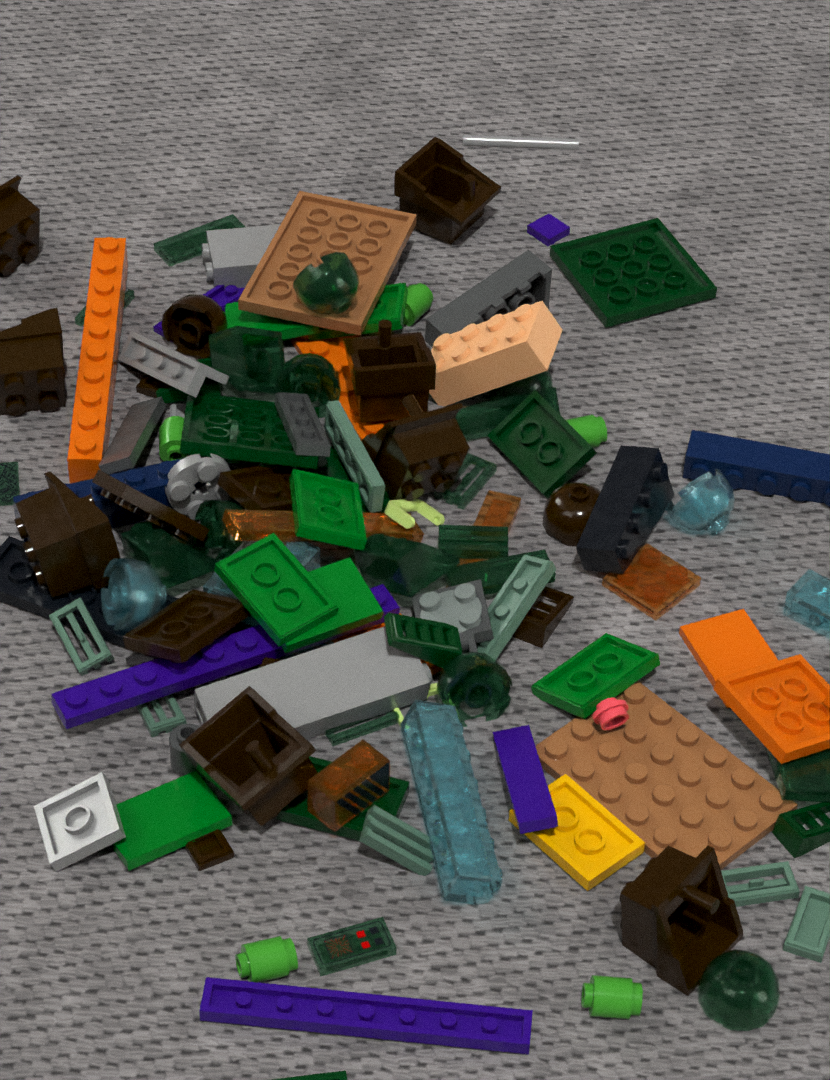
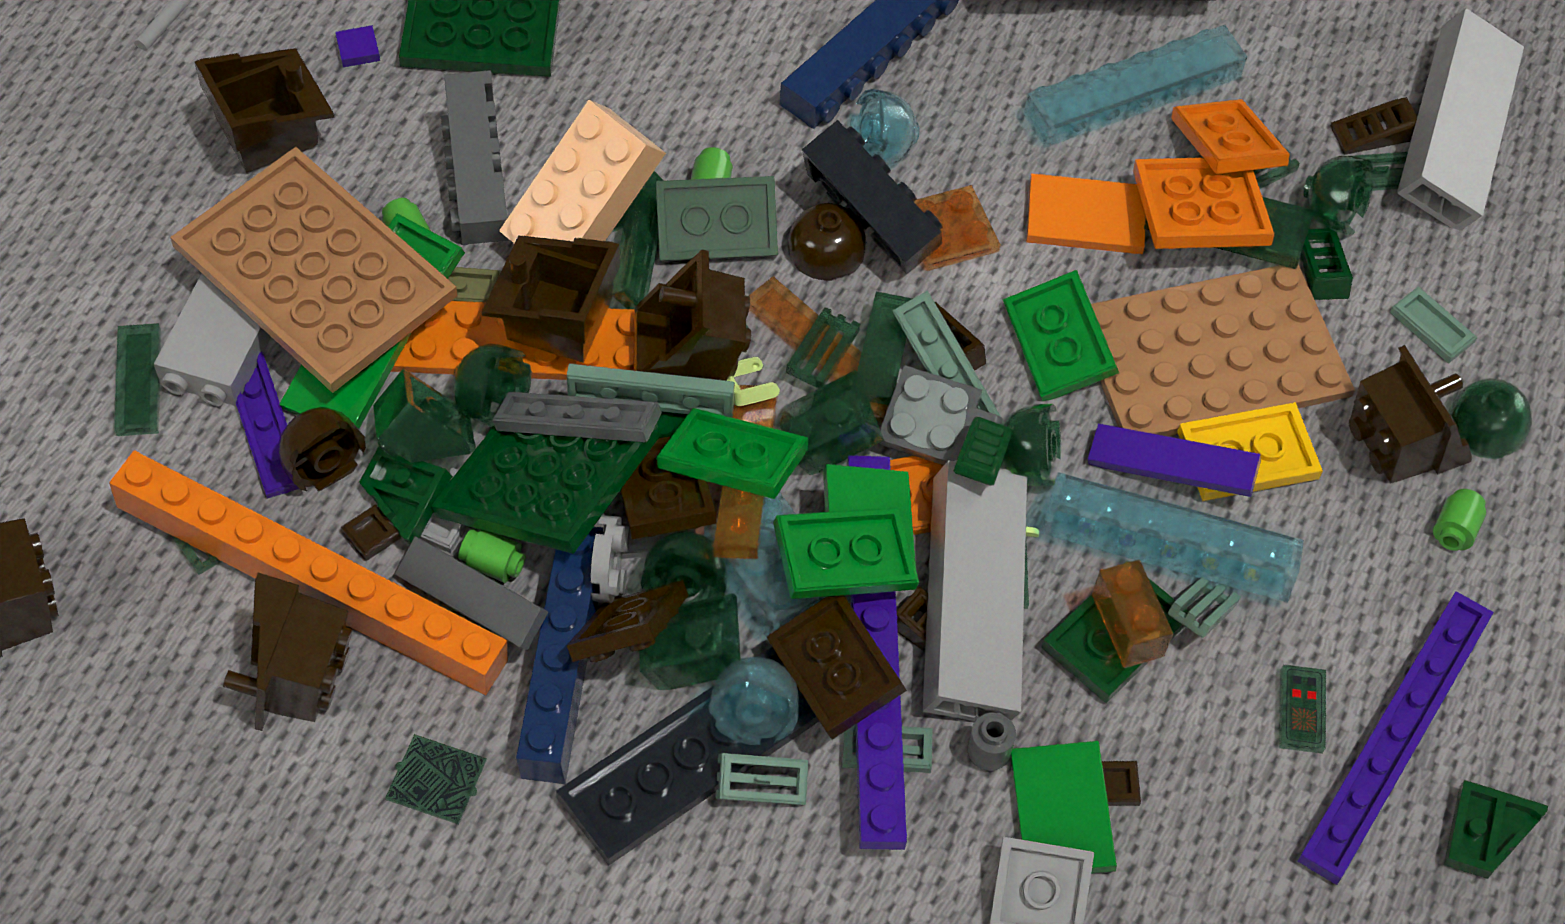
camera: 65 degrees left, 15 degrees up
(66, 538) = (642, 725): dark brown piece -> none
(167, 364) = (378, 502): light grey fence -> none
(252, 756) = (1074, 679): dark brown piece -> none
(266, 959) = (1296, 790): bright green brick -> none
(329, 285) = (399, 282): clear green cylinder -> none
(611, 713) = (1138, 346): coral plate -> none
(758, 890) = (1365, 370): sand green tile -> none

